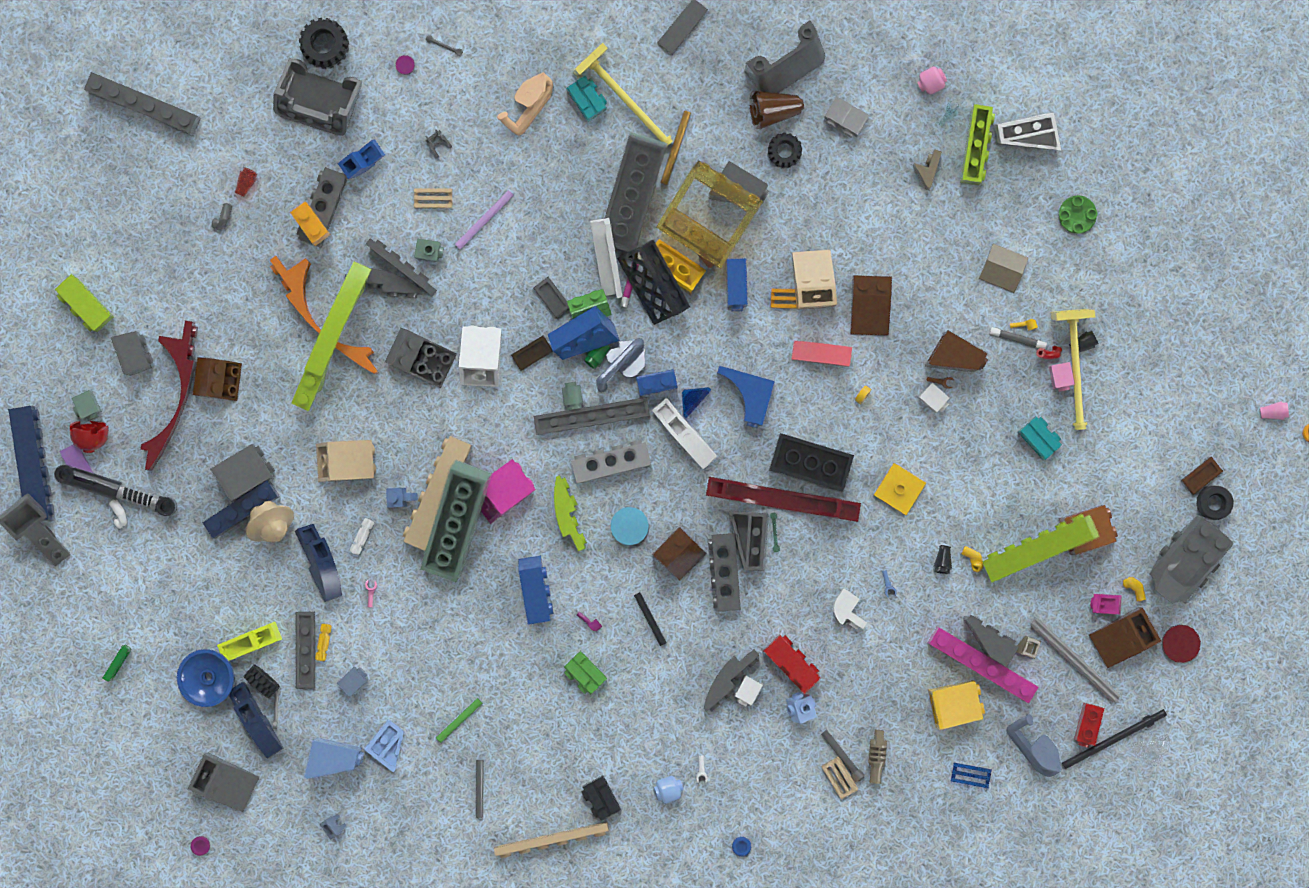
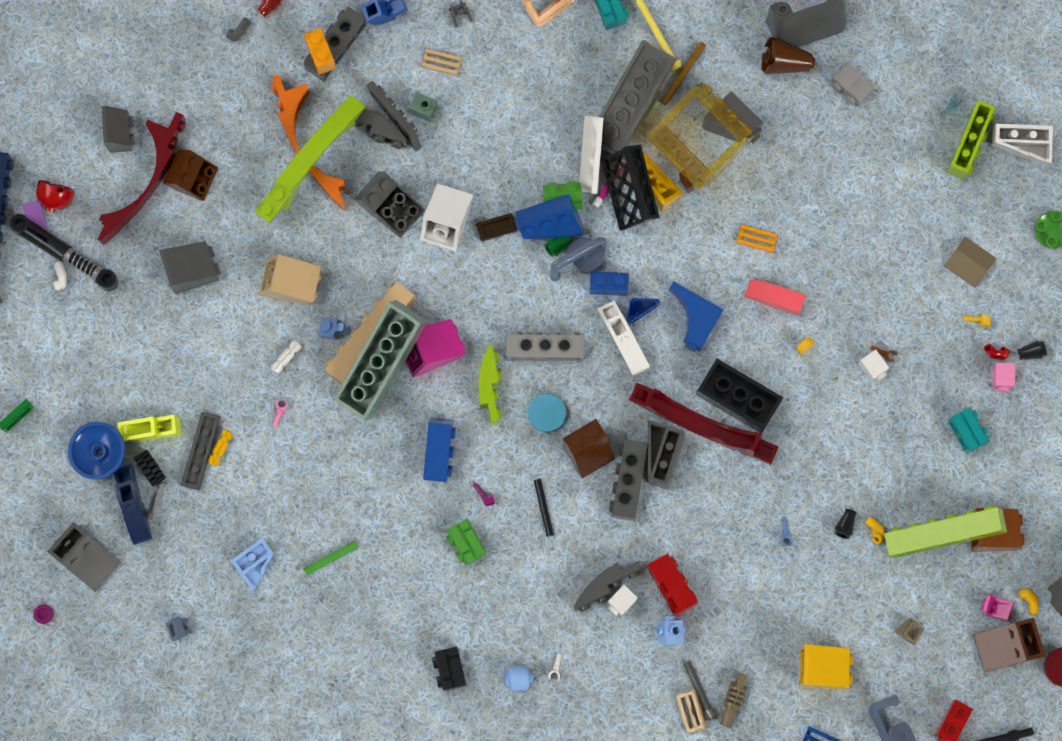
camera: 15 degrees right, 10 degrees down
(83, 303) = (85, 74): lime brick -> none
(86, 406) = (60, 168): sand green brick -> none
(240, 509) = (177, 300): dark blue brick -> none
(269, 522) = (201, 318): tan helmet -> none
(321, 561) = (240, 370): dark blue slope -> none
(332, 757) = (196, 559): medium blue slope -> none
(353, 681) = (238, 491): sand blue brick -> none
(479, 788) = (332, 630): dark grey bar -> none
(484, 219) = (483, 94): lavender bar -> none
(543, 841) = (380, 698): tan plate -> none
(551, 297) = (529, 180): dark grey tile -> none
(572, 396) = (524, 275): sand green brick -> none
(591, 416) = (538, 299): dark grey plate -> none
(736, 284) = (709, 209): blue brick -> none
(773, 516) = (684, 471): clear green hinge -> none
(788, 139) = (786, 90): black tyre -> none
(814, 279) = (784, 226): tan slope -> none
(843, 609) = (735, 547): white brick -> none
(870, 305) = (833, 263): reddish brown slope -> none
(899, 488) = (819, 445): yellow plate -> none
(925, 173) = (917, 154): dark tan slope -> none
(932, 80) = (942, 71): bright pink head -> none
(956, 354) = (906, 329): reddish brown slope -> none
(983, 664) = (843, 617): dark pink arch -> none
(993, 645) = (876, 616): dark grey slope -> none
(1018, 338) = (968, 331): dark grey bar -> none
(1072, 318) = (1027, 321): light yellow tile -> none
(1075, 660) = (953, 656): light grey axle -> none

